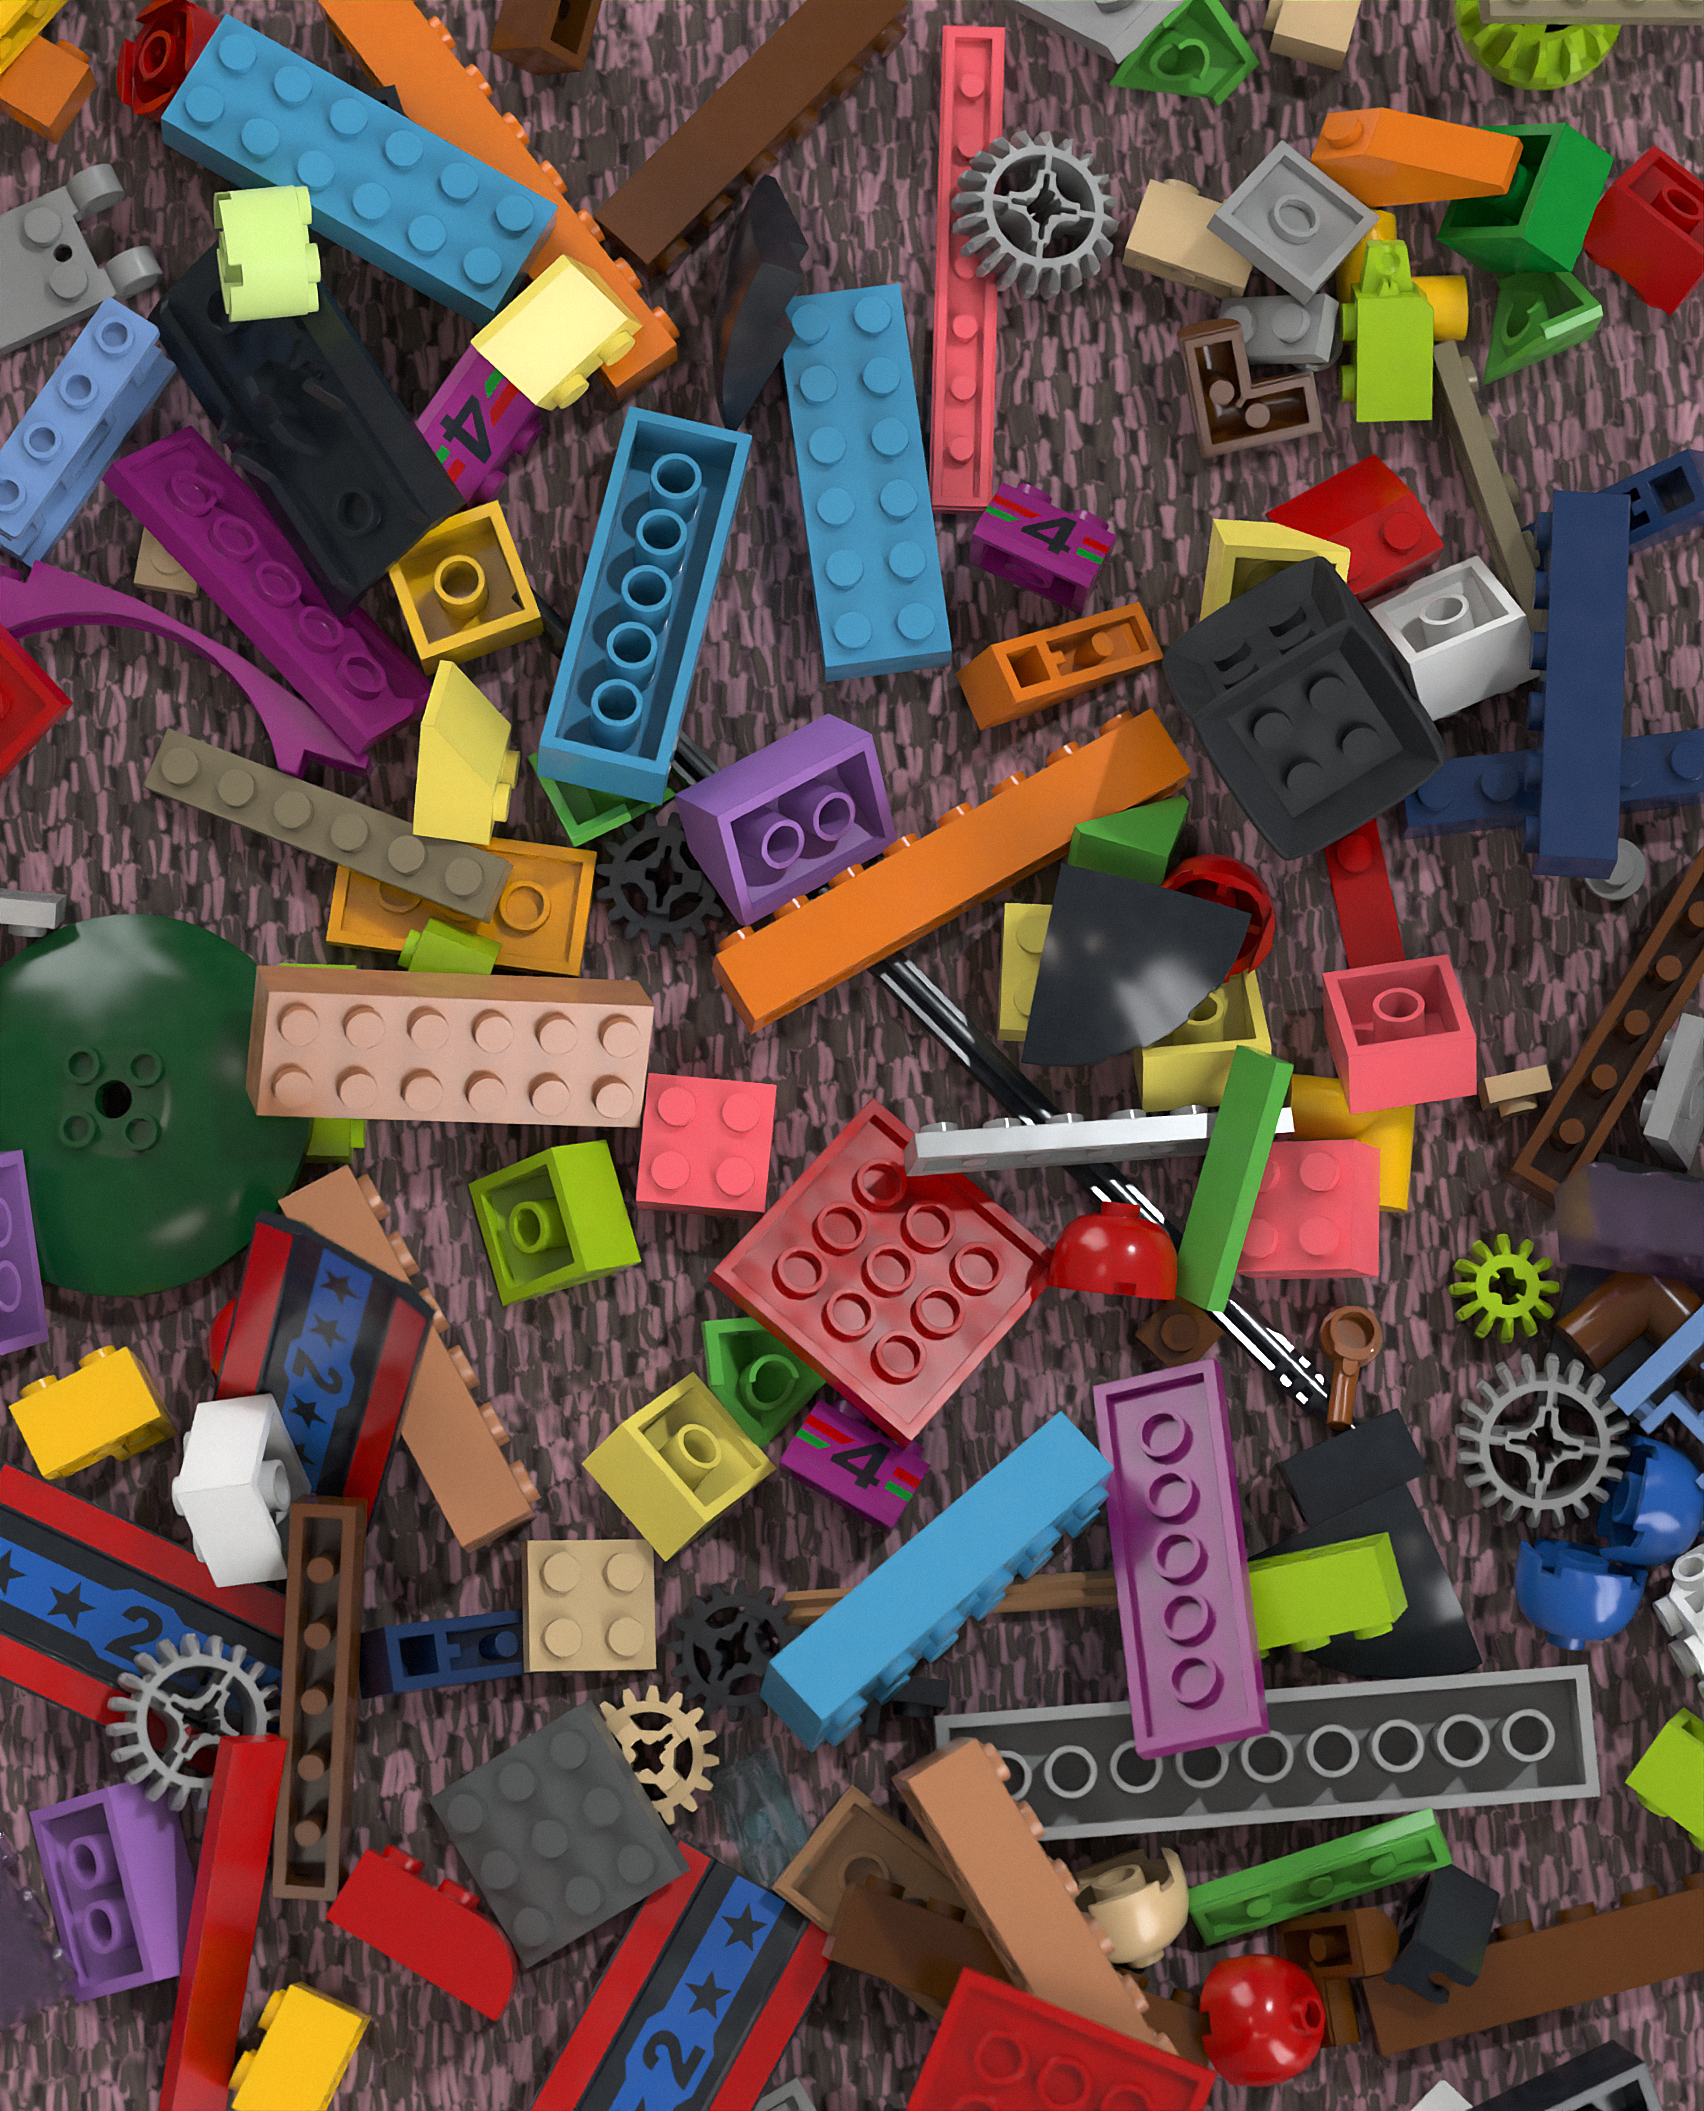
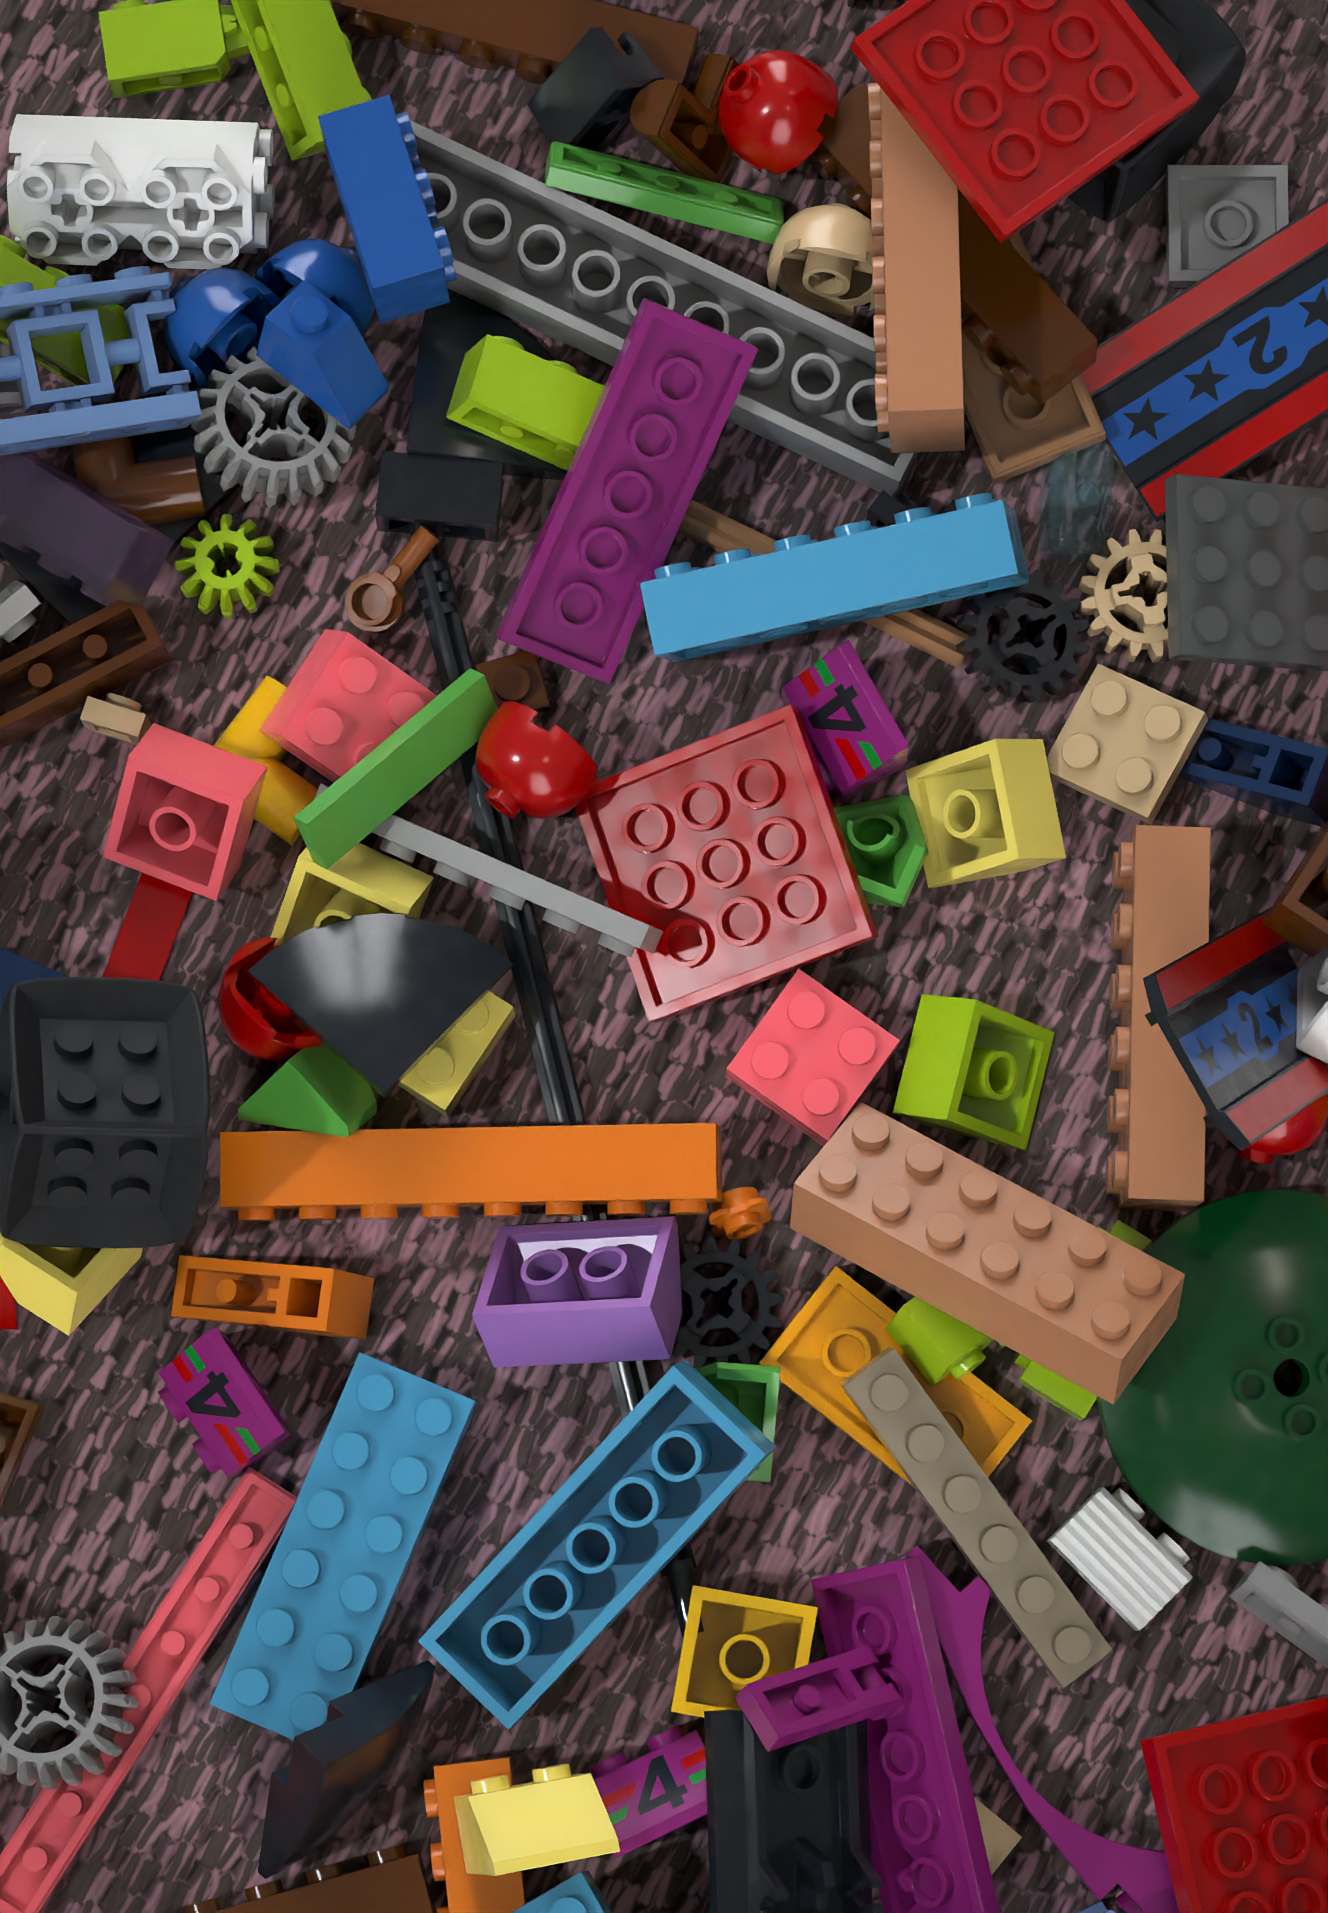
camera: 145 degrees left, 0 degrees up
(180, 869) = (1121, 1557): none -> white brick
(374, 573) = (818, 1698): none -> magenta plate
(462, 762) = (831, 1495): light yellow slope -> none
(690, 974) = (739, 1213): none -> orange plate
(1534, 1521) = (322, 354): none -> blue slope
(1558, 1680) = (388, 207): none -> blue brick

